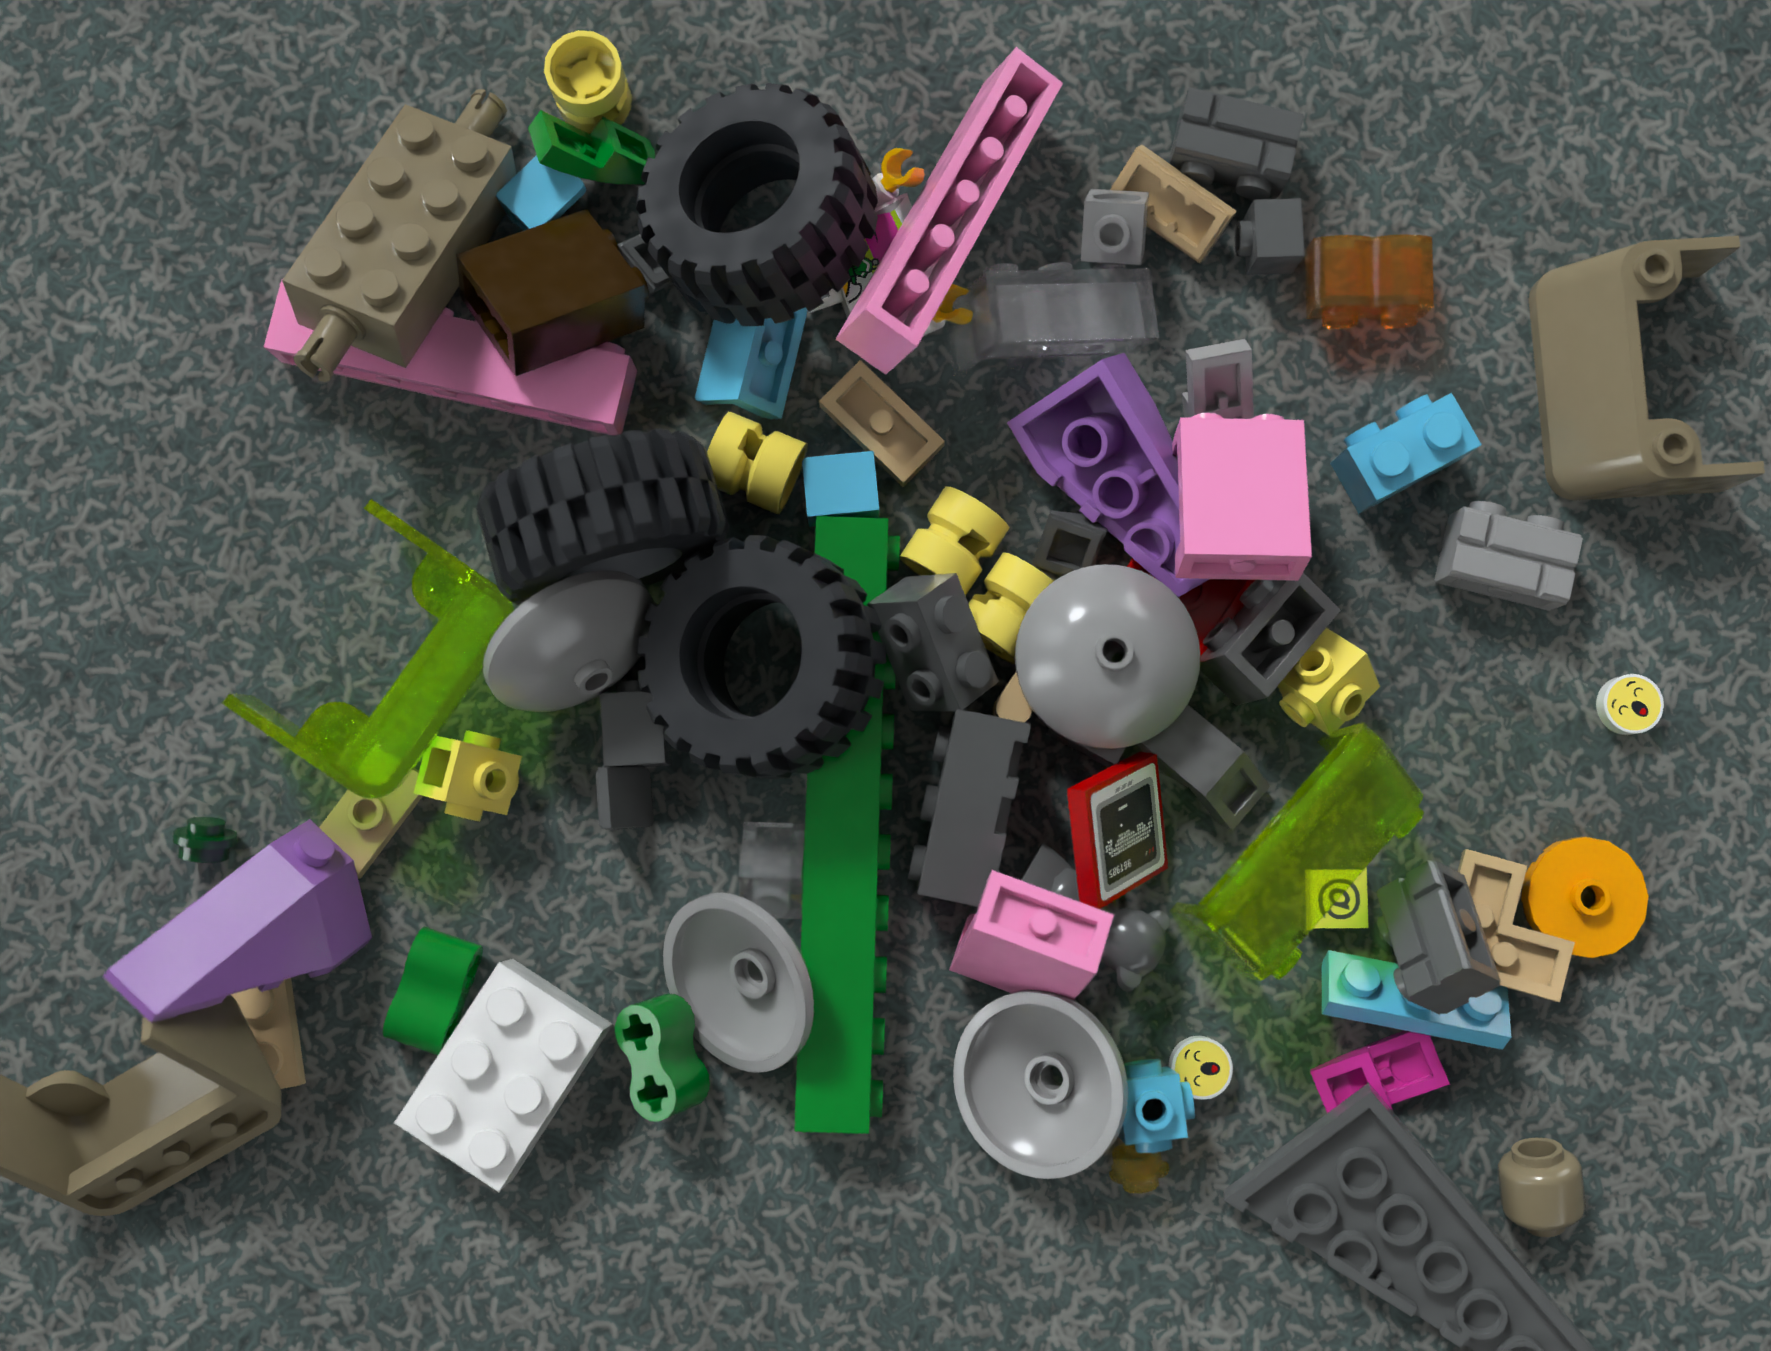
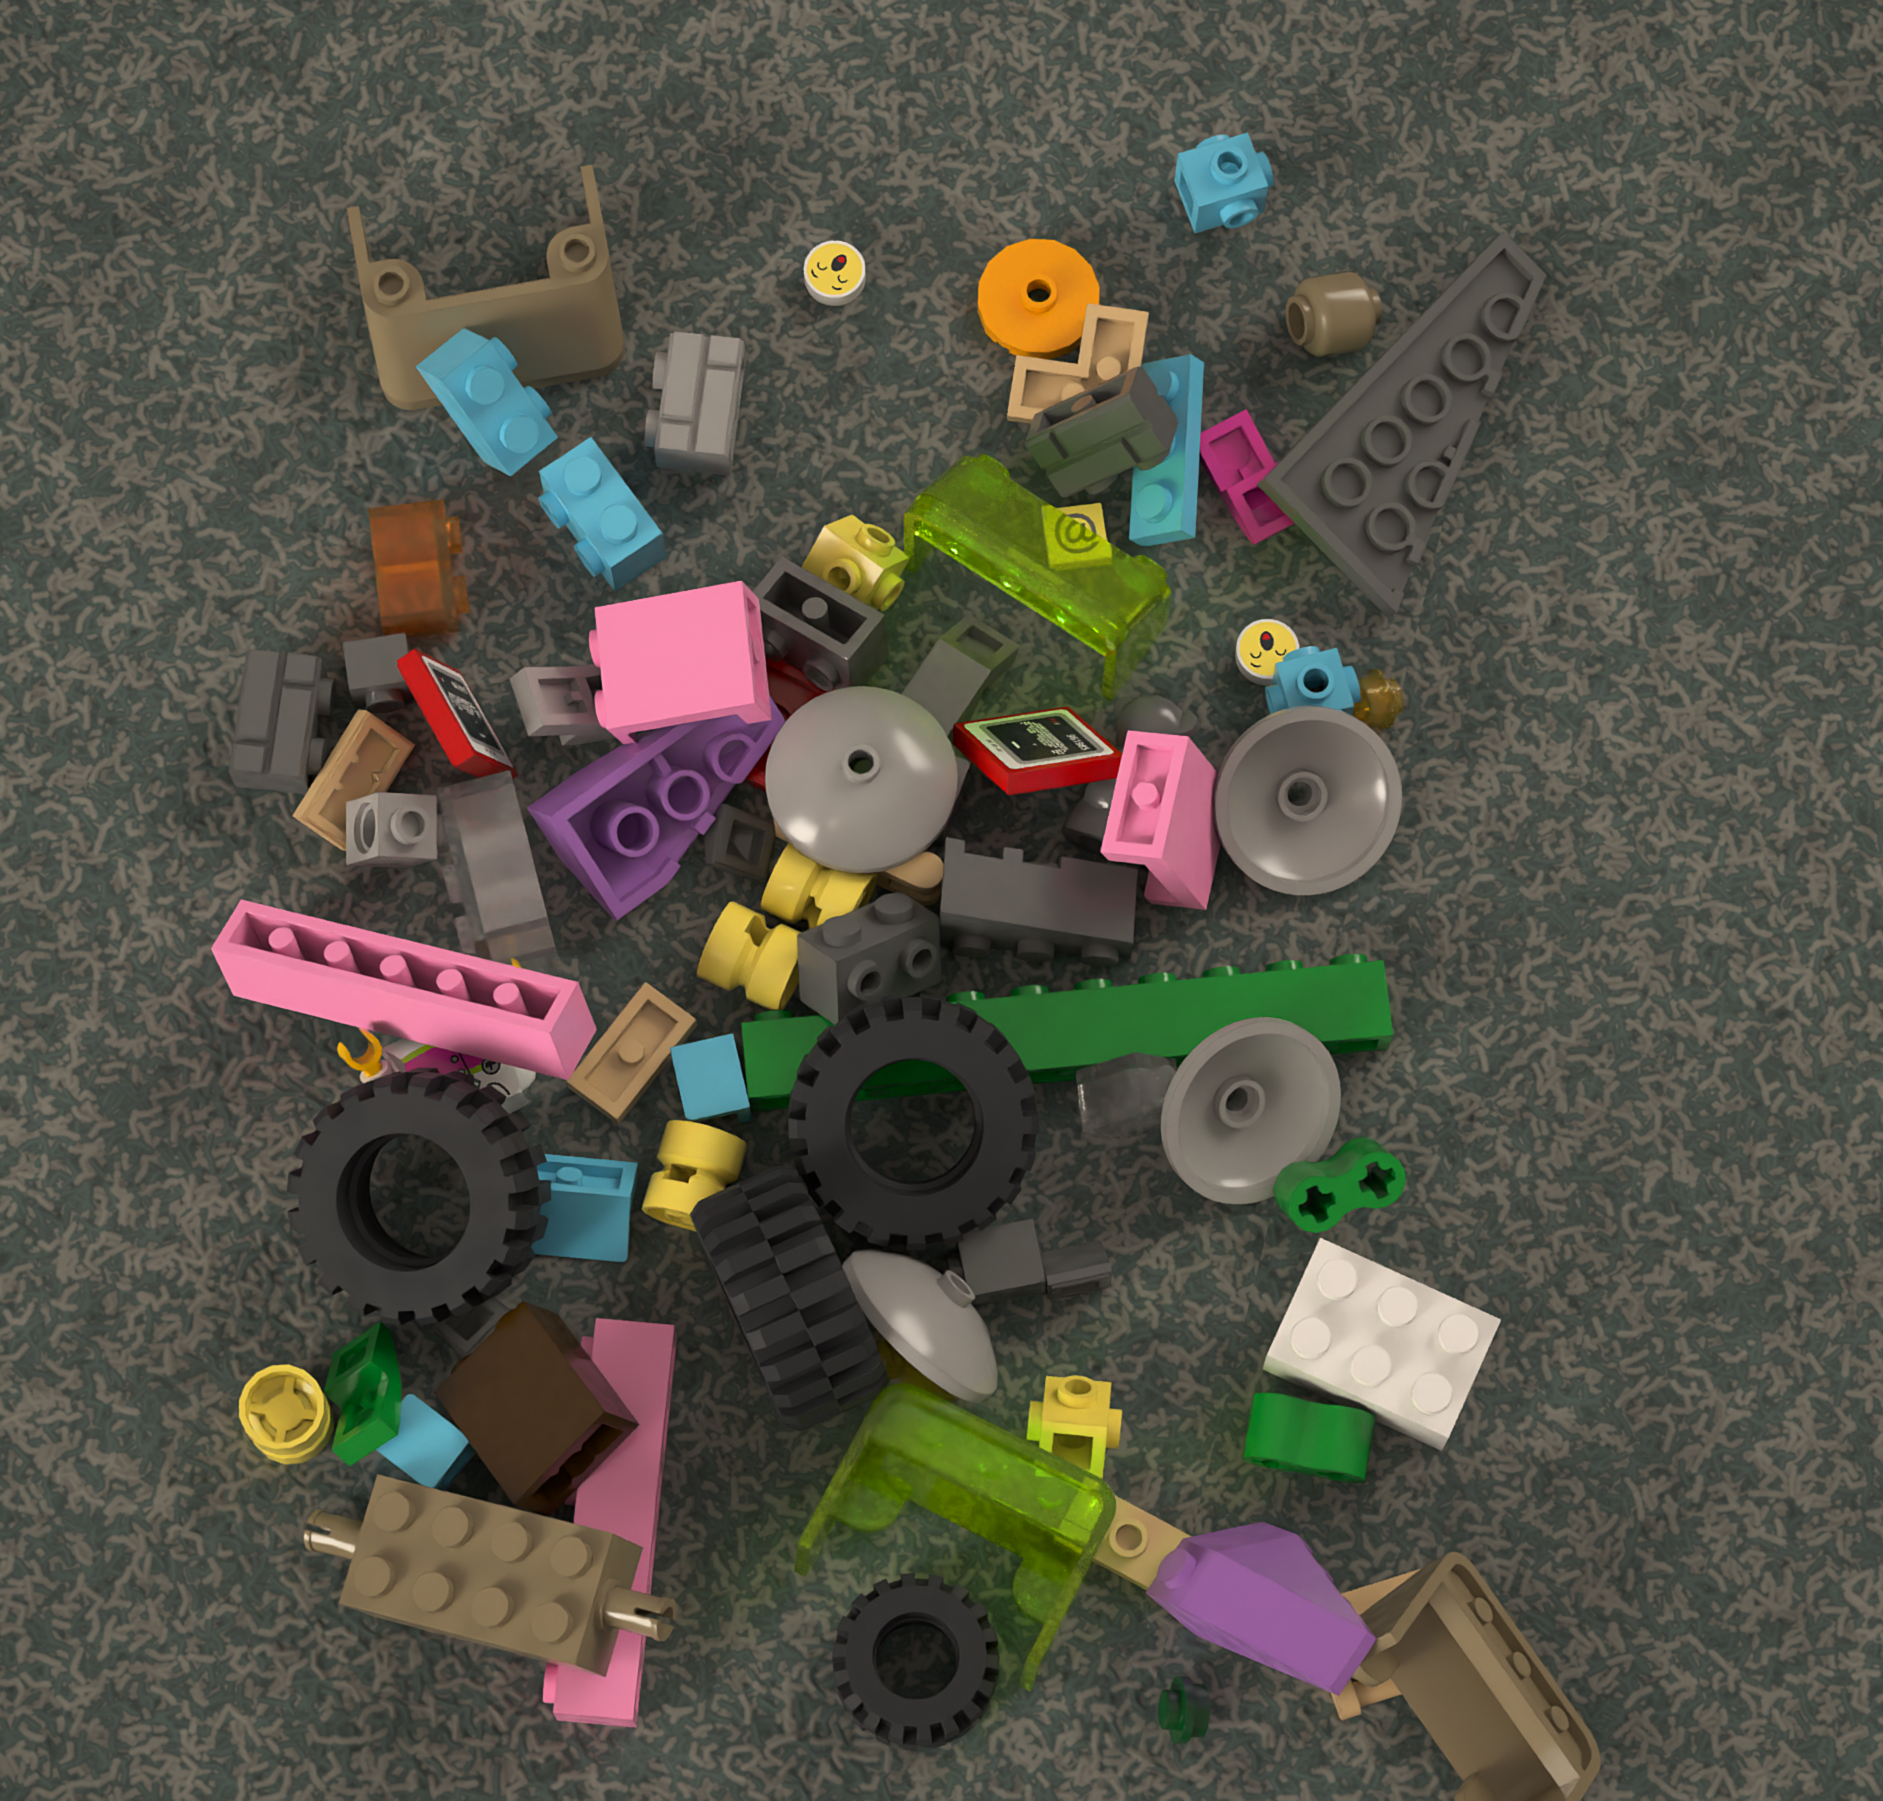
camera: 95 degrees left, 10 degrees down
(237, 582) = (916, 1603): none -> black tyre
(1216, 292) = (454, 715): none -> red tile
(1528, 351) = (488, 401): none -> medium azure brick
(1692, 1097) = (1223, 182): none -> medium azure brick

